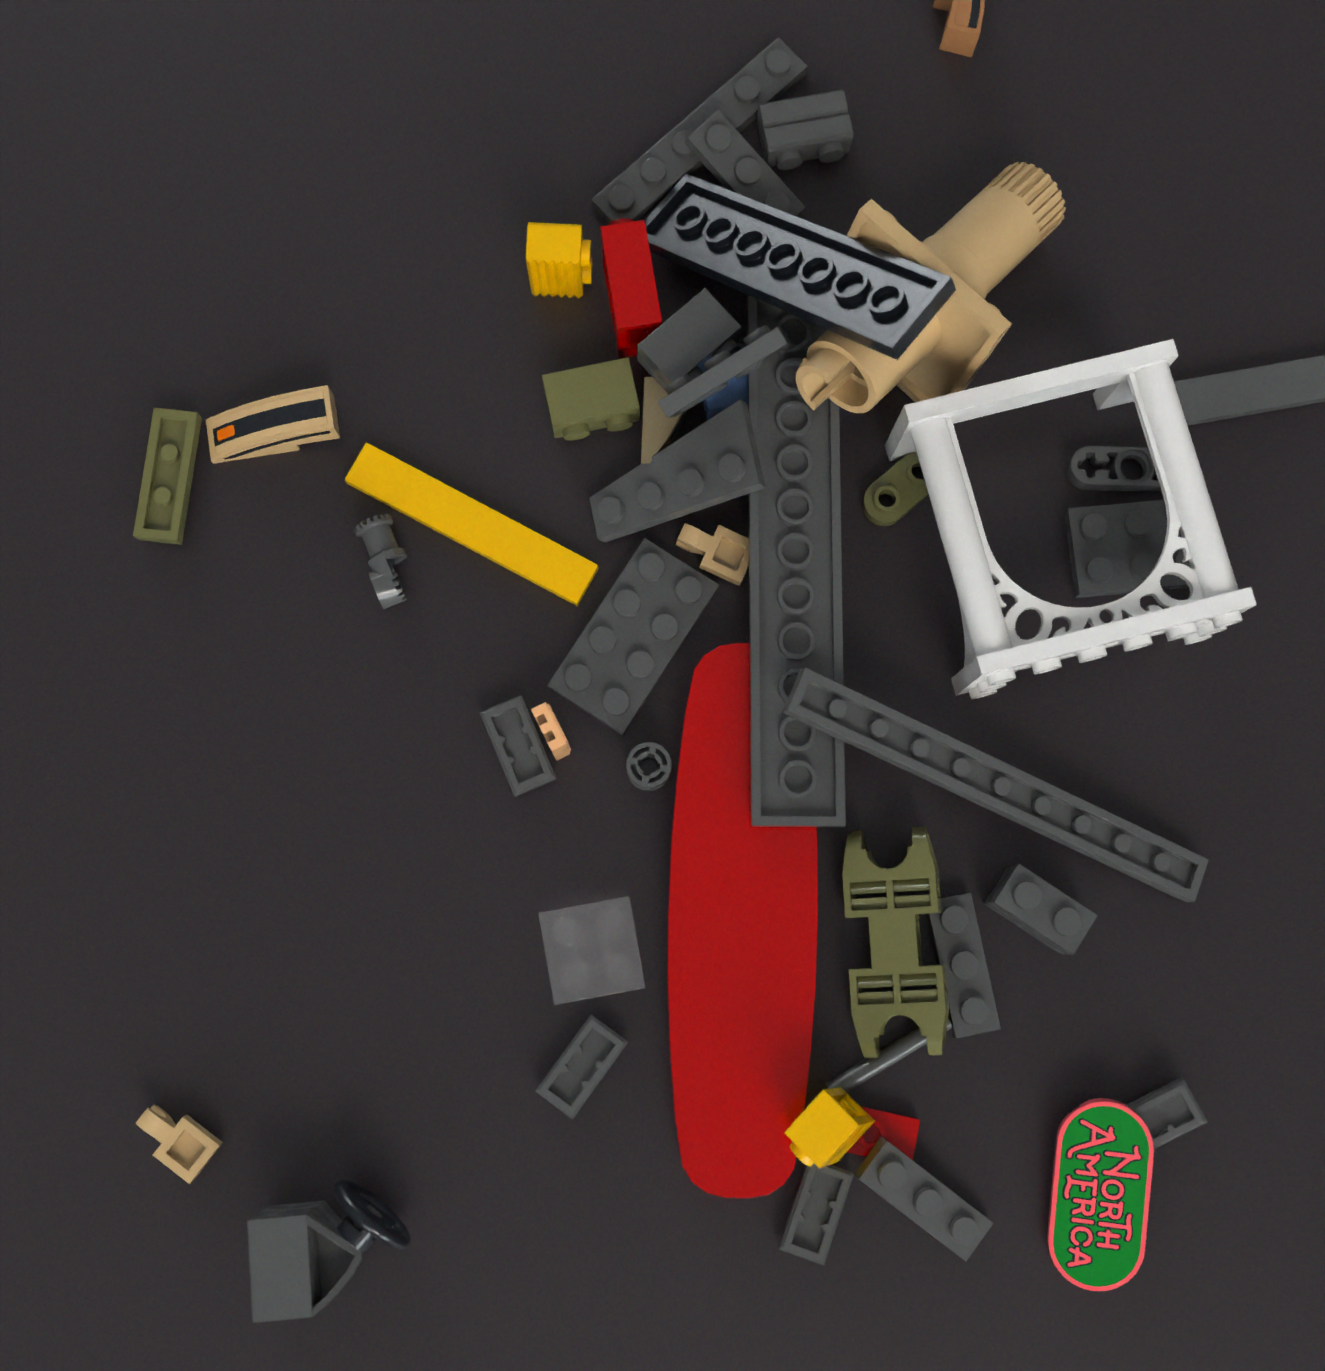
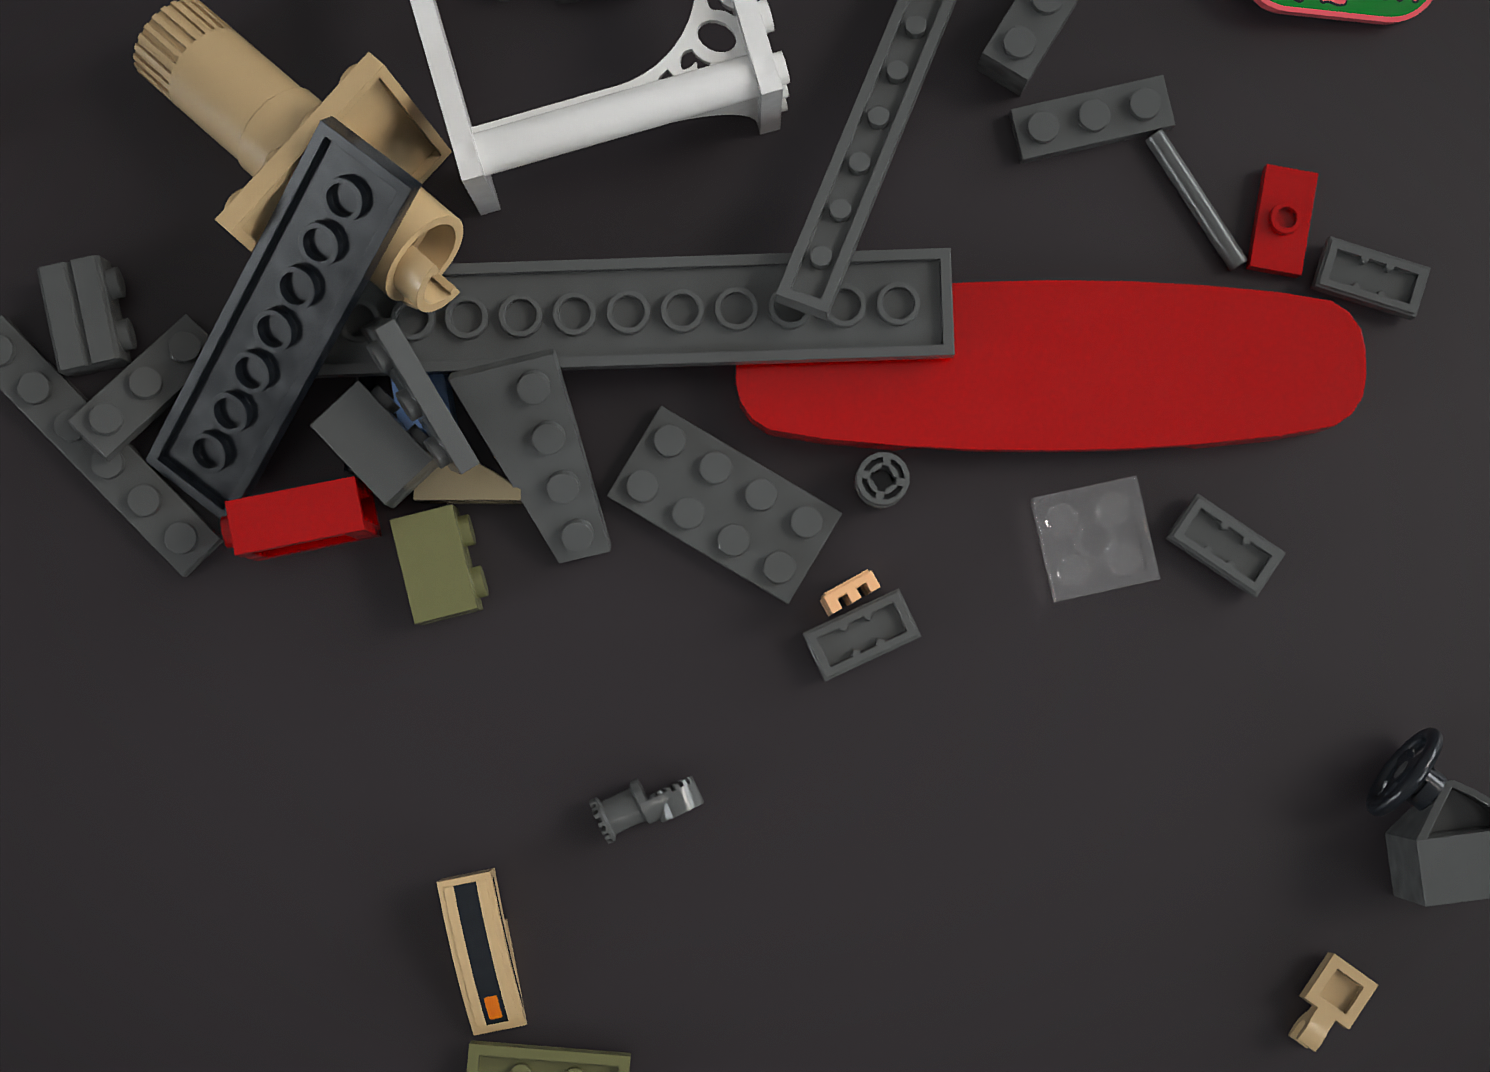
camera: 90 degrees left, 5 degrees up
(471, 524) = (594, 704): yellow tile -> none
(558, 259) = (266, 609): yellow brick -> none
(724, 552) = (622, 400): tan plate -> none
(828, 1128) = (1290, 261): yellow brick -> none
(895, 942) = (1115, 190): olive piece -> none
(901, 486) = (533, 194): olive plate -> none
(923, 1198) = (1353, 159): dark grey plate -> none

